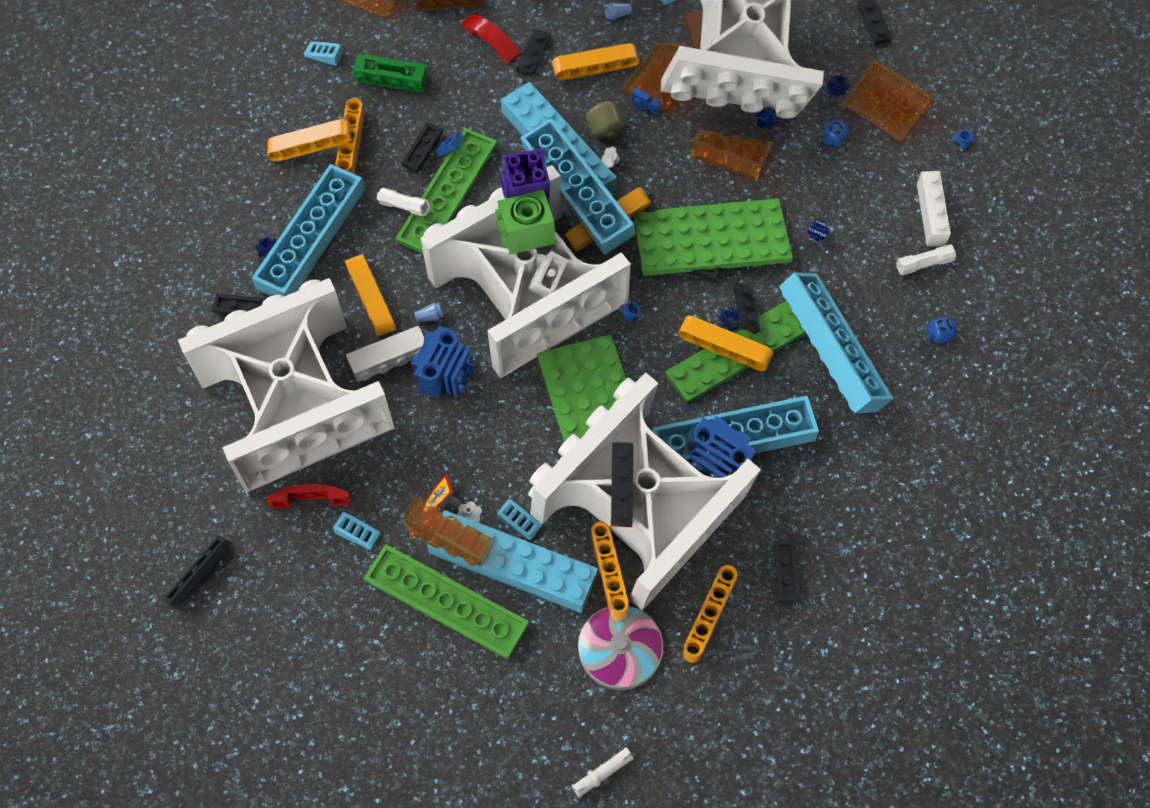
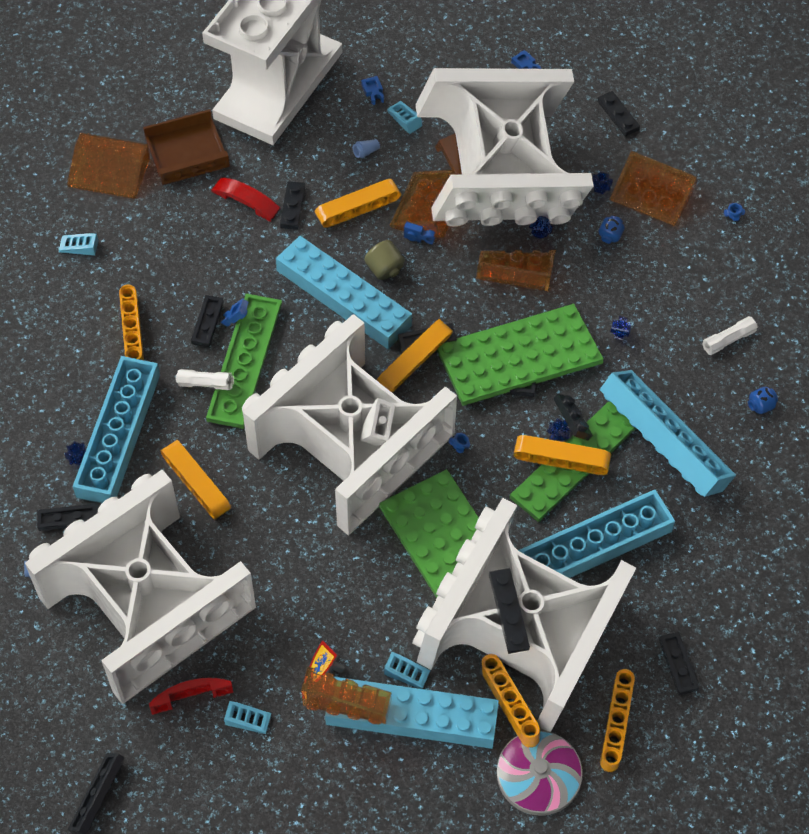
camera: 15 degrees left, 5 degrees down
(309, 140) = (91, 336): light orange beam -> none
(385, 354) = (230, 534): white brick -> none
(390, 73) = (154, 252): green brick -> none
(430, 313) = (261, 485): medium blue cone -> none
(442, 364) = (288, 532): blue piece -> none
(446, 601) = (356, 766): bright green plate -> none
(474, 511) = (355, 672): white plant -> none
(524, 174) = (335, 334): dark purple brick -> none
(525, 222) = (345, 375): bright green brick -> none
(581, 187) = (384, 331): medium azure brick -> none
(610, 157) = (398, 294): white plant -> none
(716, 454) = (587, 556): blue piece -> none
(933, 208) = (724, 285): white brick -> none

